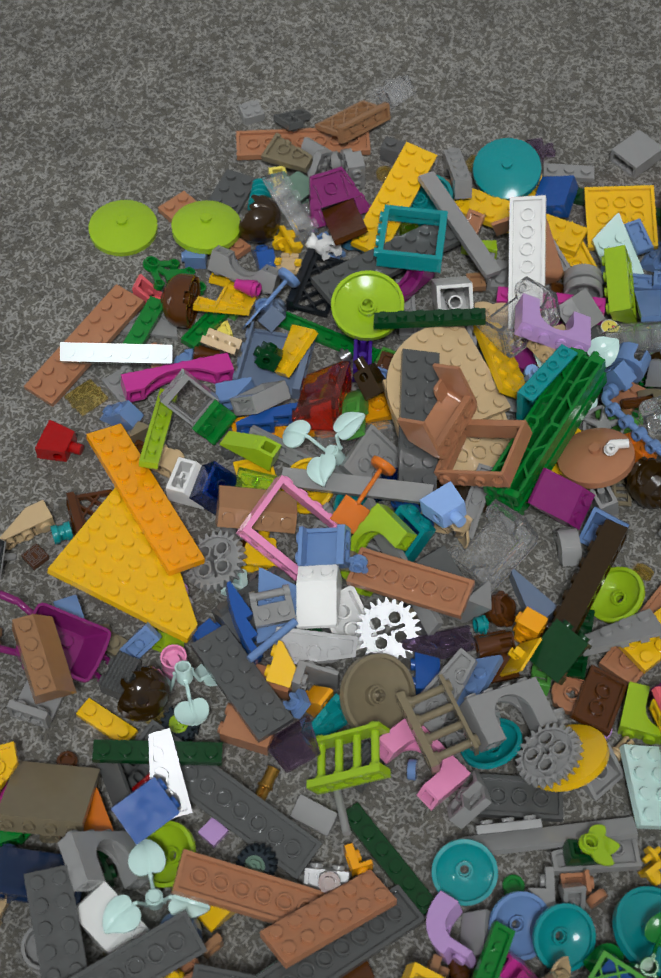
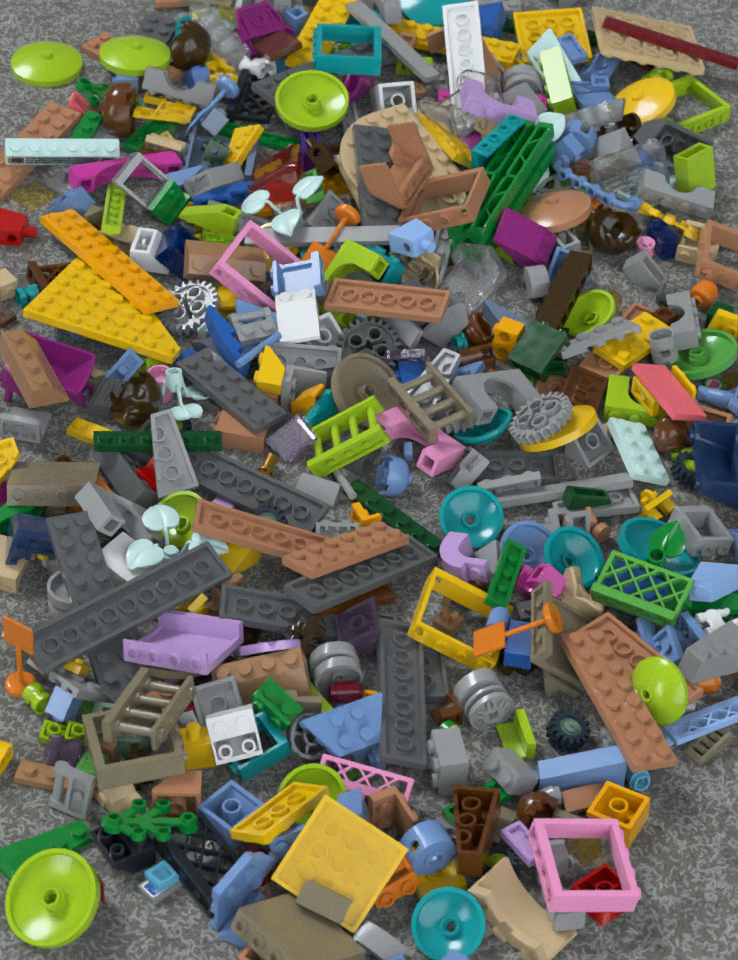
camera: 10 degrees left, 15 degrees down
(146, 809) = (154, 477): blue brick -> none
(249, 287) = (187, 99): dark pink cone -> none
(298, 703) = (290, 402): medium blue tile -> none
(300, 177) = (226, 12): none -> clear yellow tile
(328, 881) = (340, 527): plate -> none
(358, 564) = (335, 281): medium blue plate -> none
(369, 185) = (296, 18): none -> medium blue brick
(392, 806) = (393, 473): none -> medium blue cylinder
(430, 318) = (370, 104): dark green plate -> none
(520, 656) = (500, 356): yellow piece -> none
(601, 845) = (593, 485): lime plate -> none
(614, 445) = (569, 194): white arm -> none

